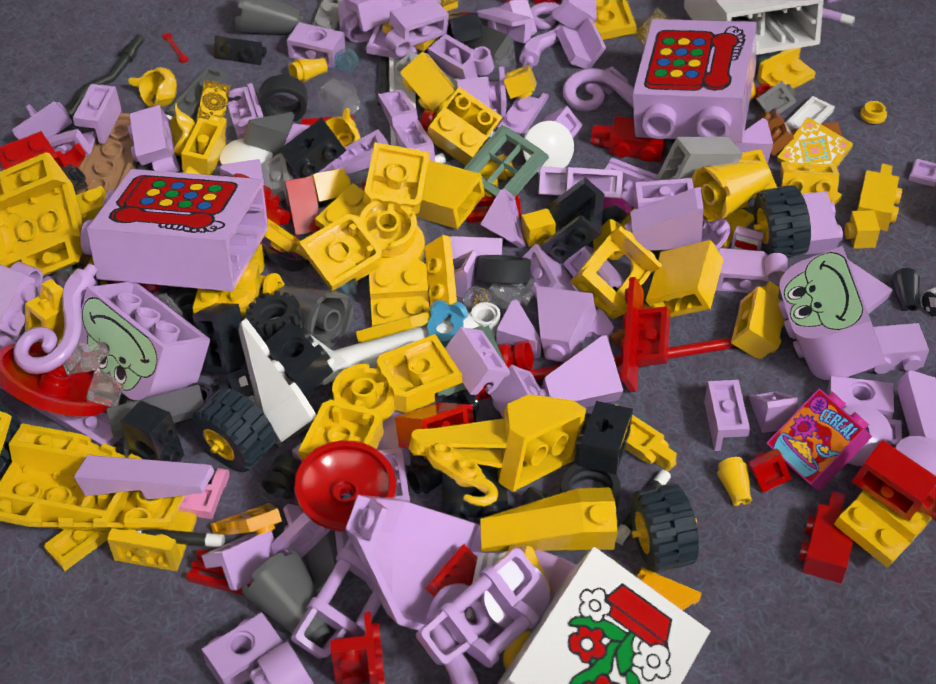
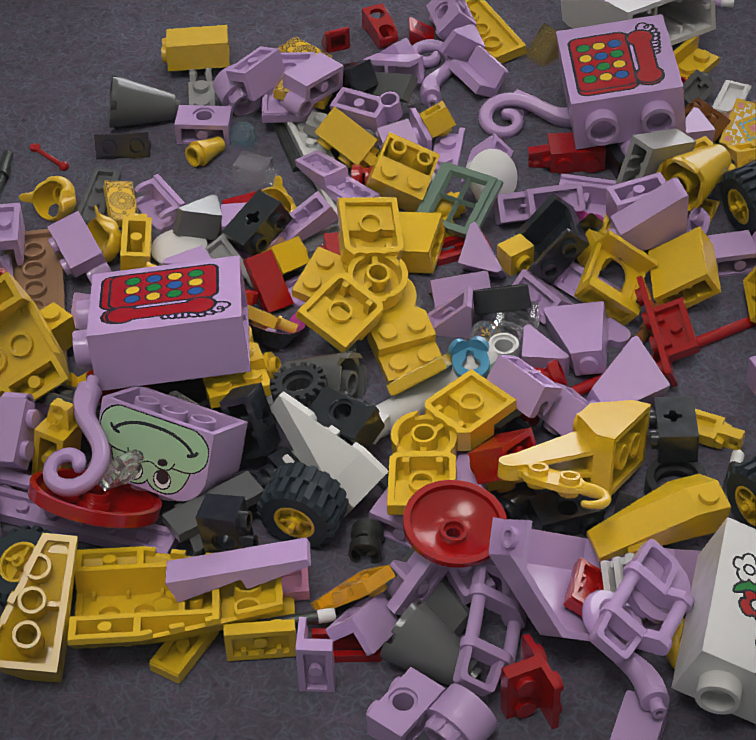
camera: 15 degrees left, 5 degrees down
(104, 389) = (152, 496): clear tile -> none
(176, 581) = (314, 661): none -> lavender panel
(283, 84) = (191, 168): black tyre -> none
(440, 270) = (442, 313): yellow plate -> none
(747, 239) = (724, 222): tile -> none

